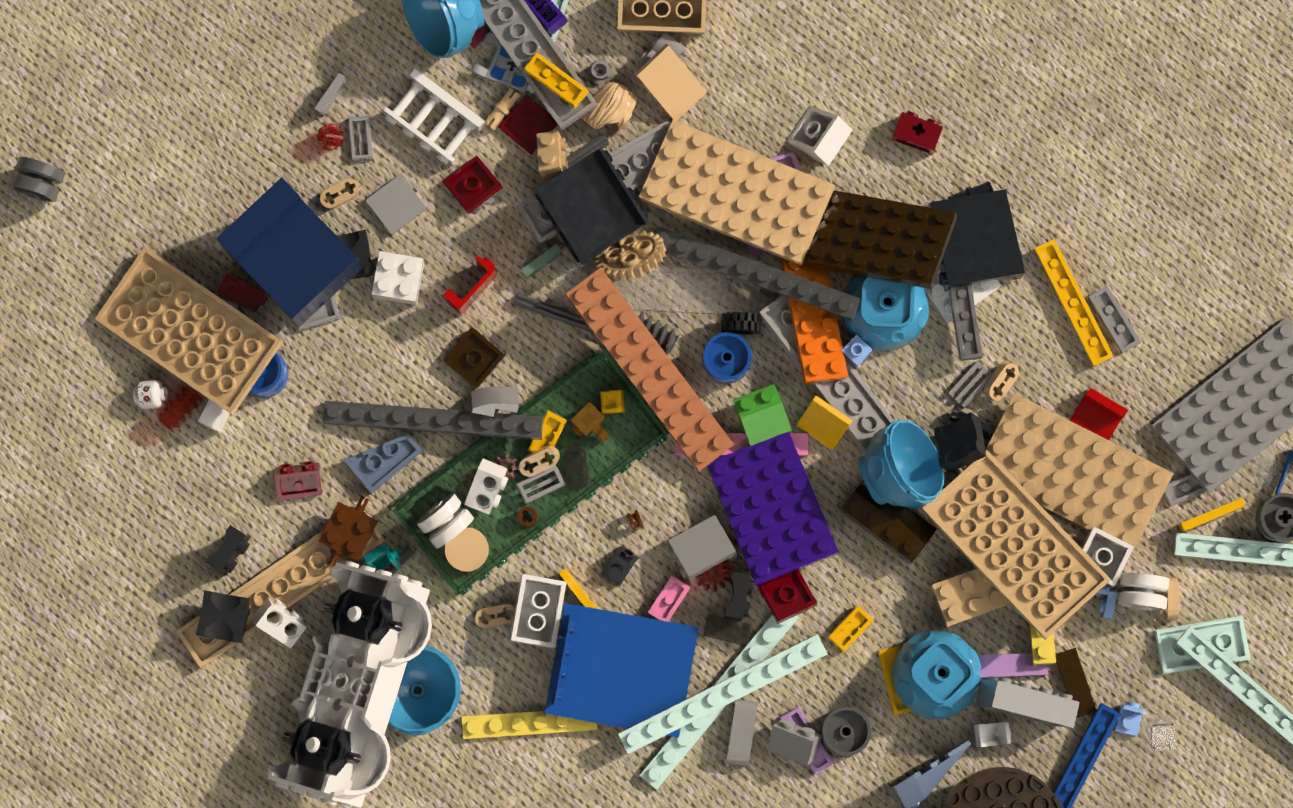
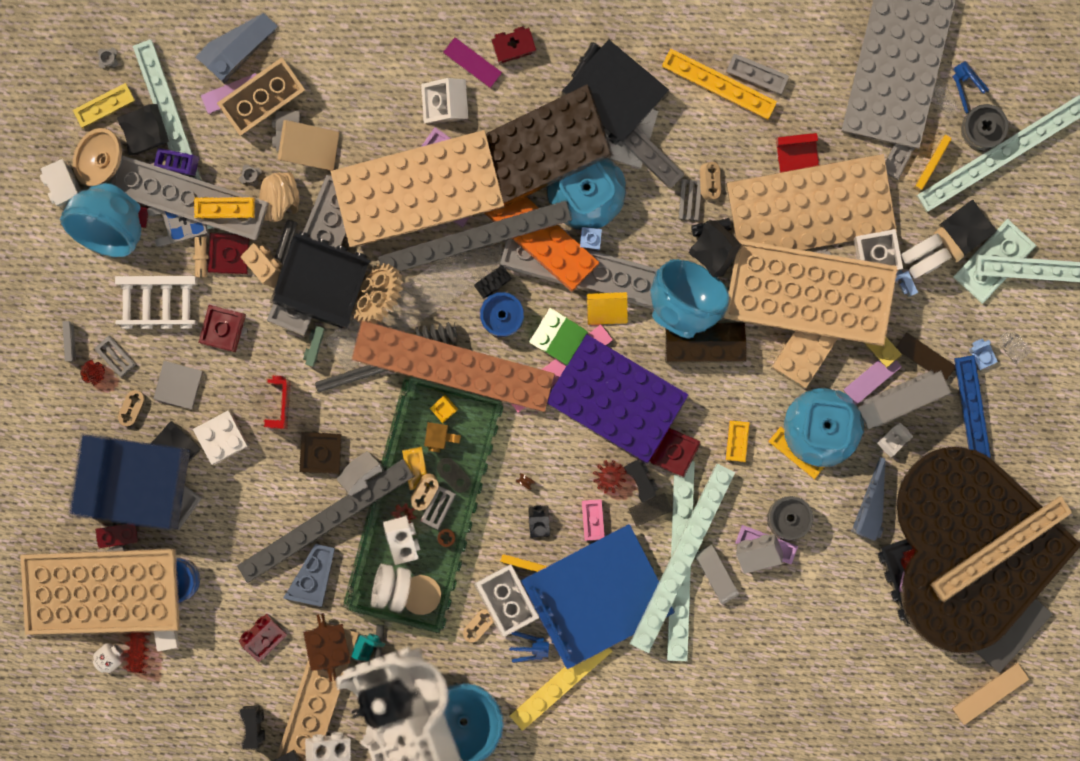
camera: 30 degrees left, 5 degrees up
(534, 677) = (539, 649): none -> blue plant
(701, 548) = (588, 465): light grey panel -> none
(869, 120) = (472, 62): none -> magenta tile
(1201, 595) = (968, 227): none -> black brick

